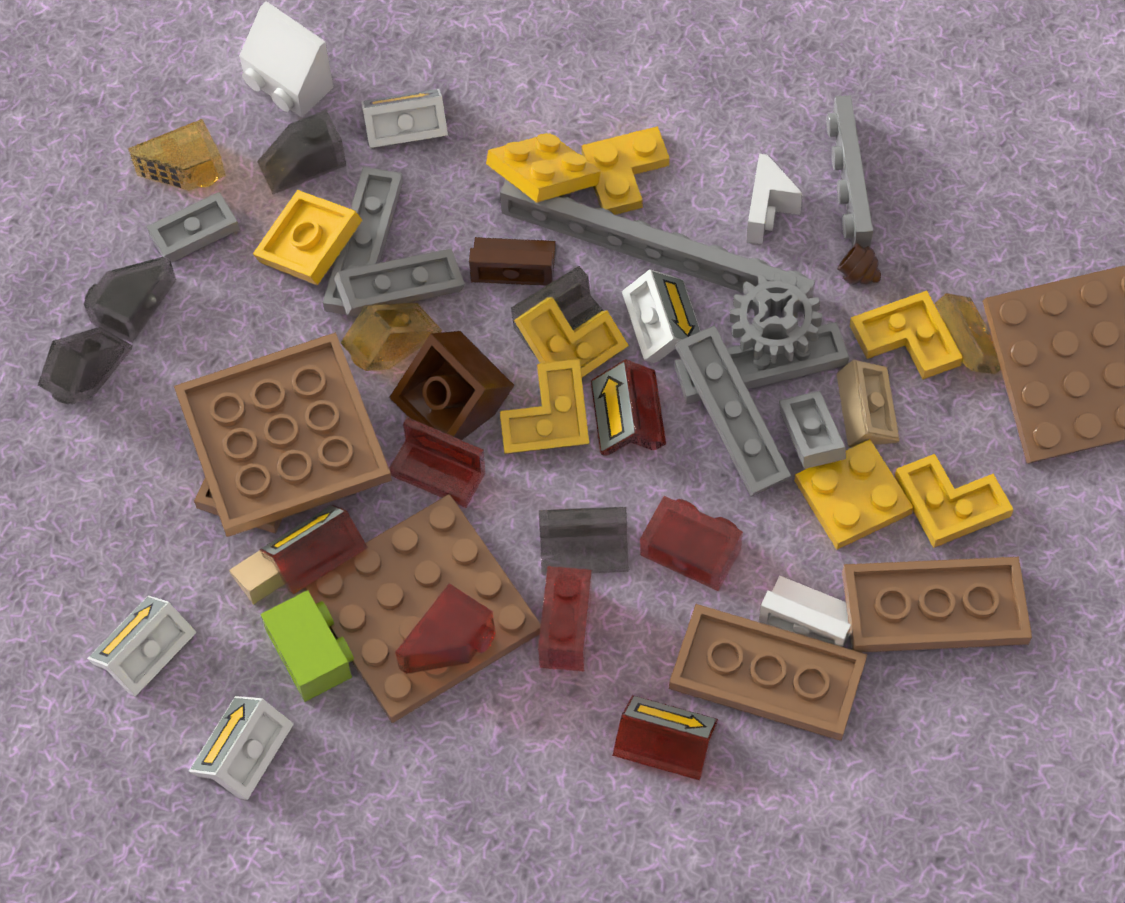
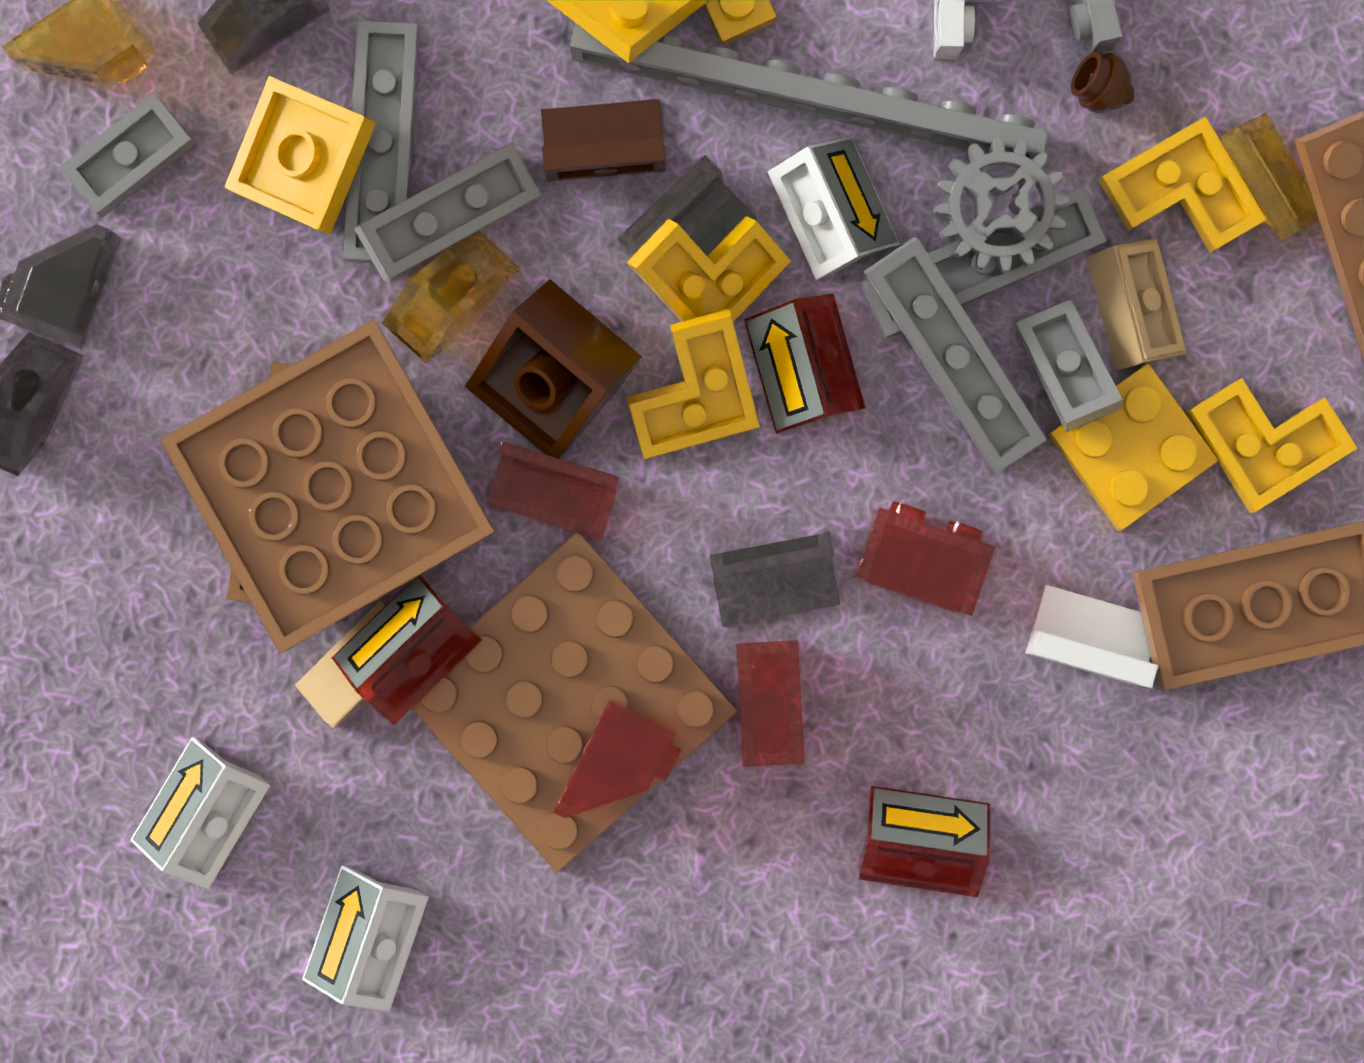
camera: 10 degrees left, 25 degrees up
(307, 645) = (426, 788): lime brick -> none
(768, 672) = (1050, 733): medium nougat plate -> none

